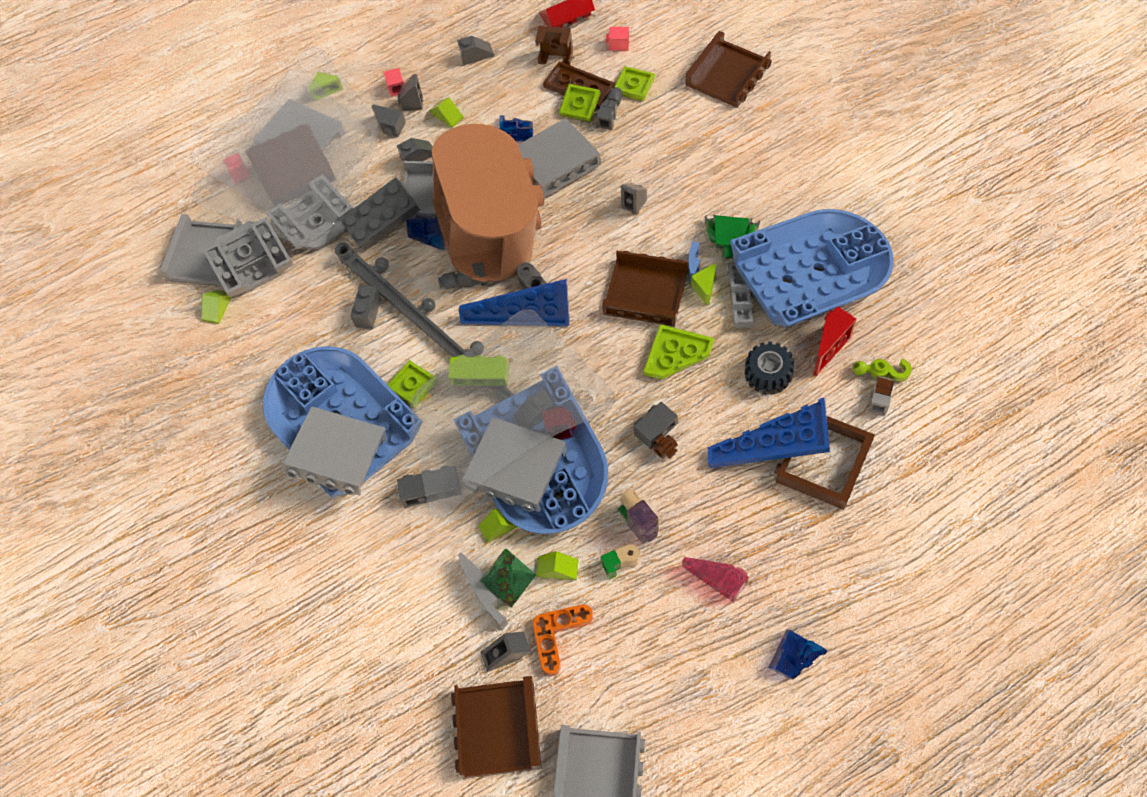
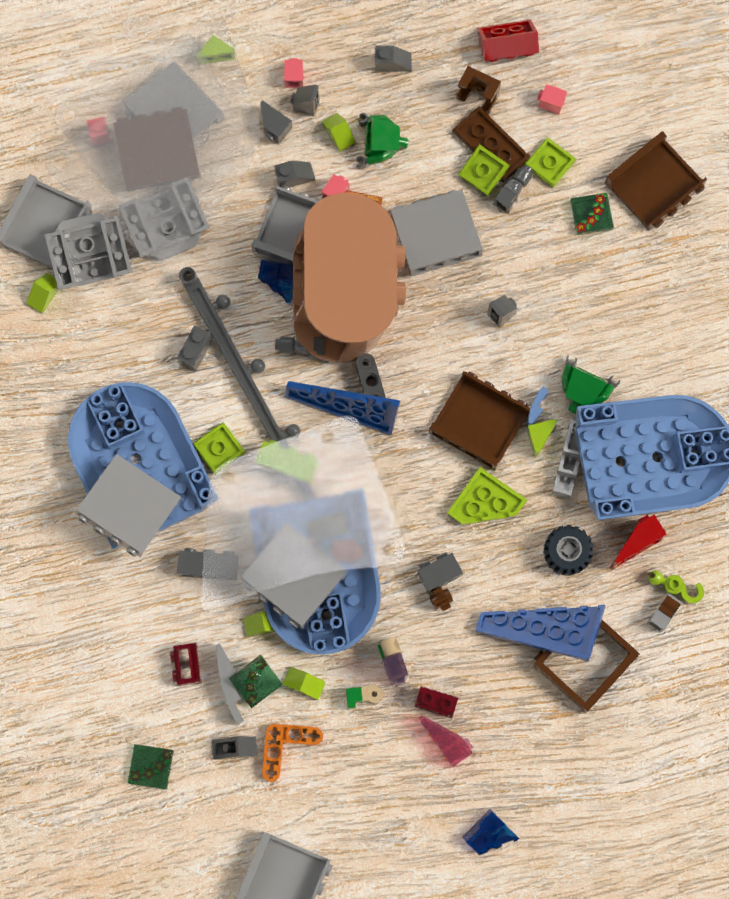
camera: 10 degrees right, 15 degrees up
(379, 214) = (235, 247): dark grey brick -> none
(424, 699) = (150, 766): none -> clear green tile
(441, 599) = (194, 665): none -> dark red window
(484, 103) = (381, 139): none -> green torso
(496, 729) = (207, 813): reddish brown panel -> none
(518, 129) = (405, 180): clear blue slope -> none
(683, 108) = (591, 213): none -> clear green tile
(694, 542) = (436, 702): none -> dark red window

